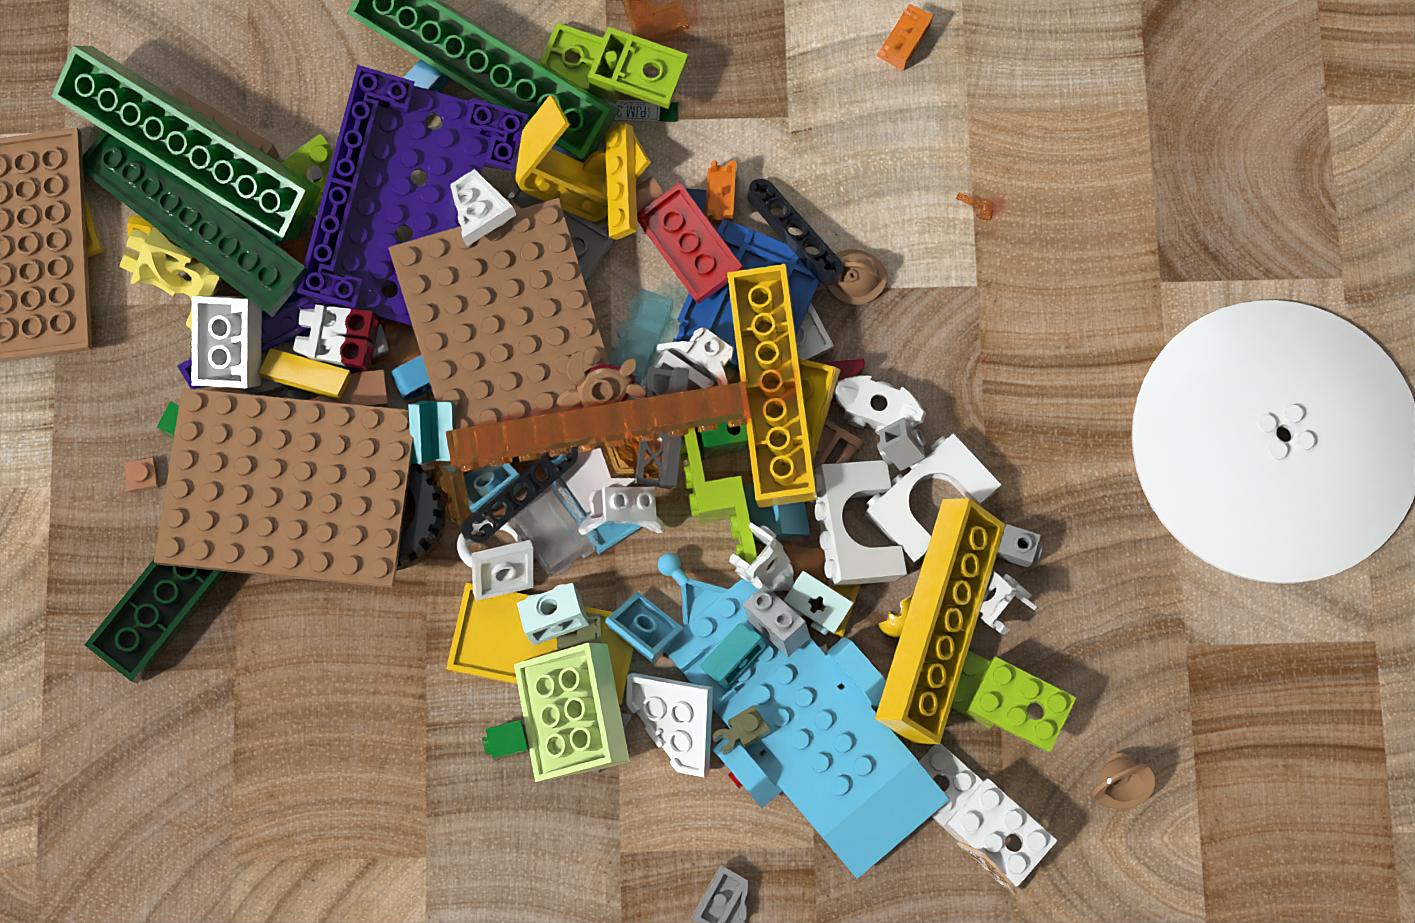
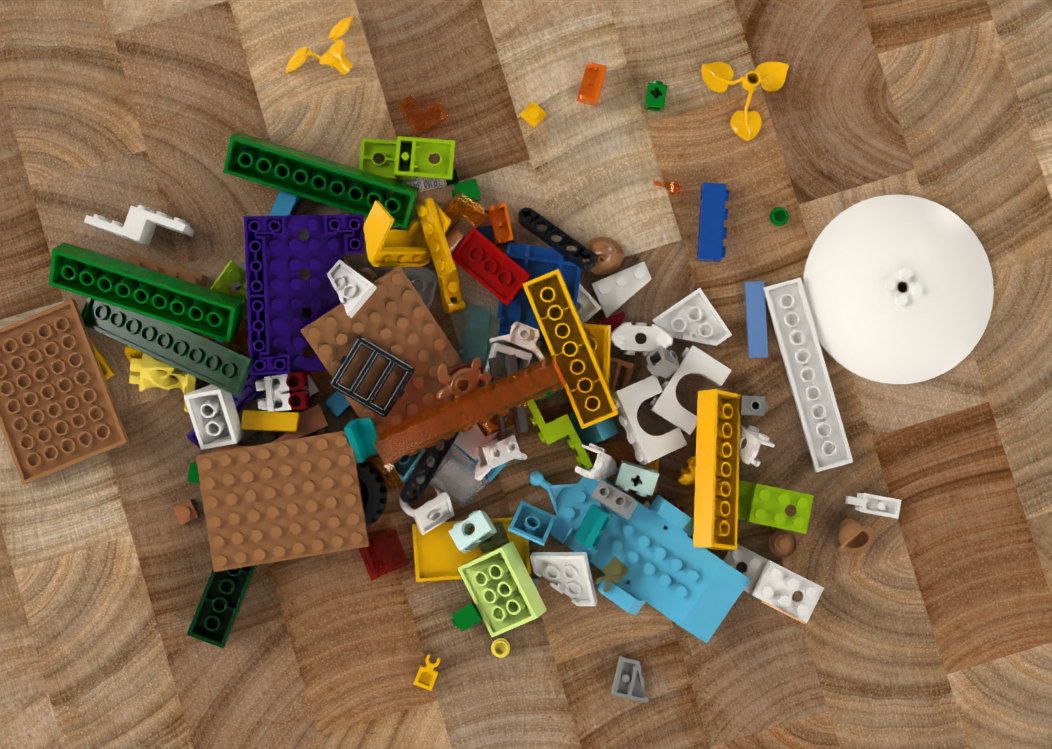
camera: 10 degrees left, 10 degrees up
(206, 54) = (140, 224): none -> white bracket
(410, 614) = (384, 554): none -> clear red bracket
(420, 813) = (427, 675): none -> yellow plate
(488, 308) = (352, 391): none -> black bar
(544, 802) = (500, 647): none -> light yellow plate
(621, 262) = (450, 288): none -> yellow plate
(673, 153) = (465, 208): none -> clear orange plate
(683, 135) = (469, 189): none -> green brick
(810, 57) = (533, 114): none -> yellow plate
(869, 326) = (619, 287): none -> white wing
(965, 403) = (694, 320): none -> white plate
(988, 86) = (652, 103): none -> green brick
(1012, 763) = (782, 543): none -> medium nougat plate
(1026, 271) = (711, 222): none -> blue brick
(1056, 427) = (756, 319): none -> medium blue tile
(1112, 527) = (808, 375): none -> white plate
(1127, 290) = (779, 216): none -> green plate
(1164, 93) = (769, 74): none -> yellow plant
(1167, 744) = (875, 504): none -> white hinge

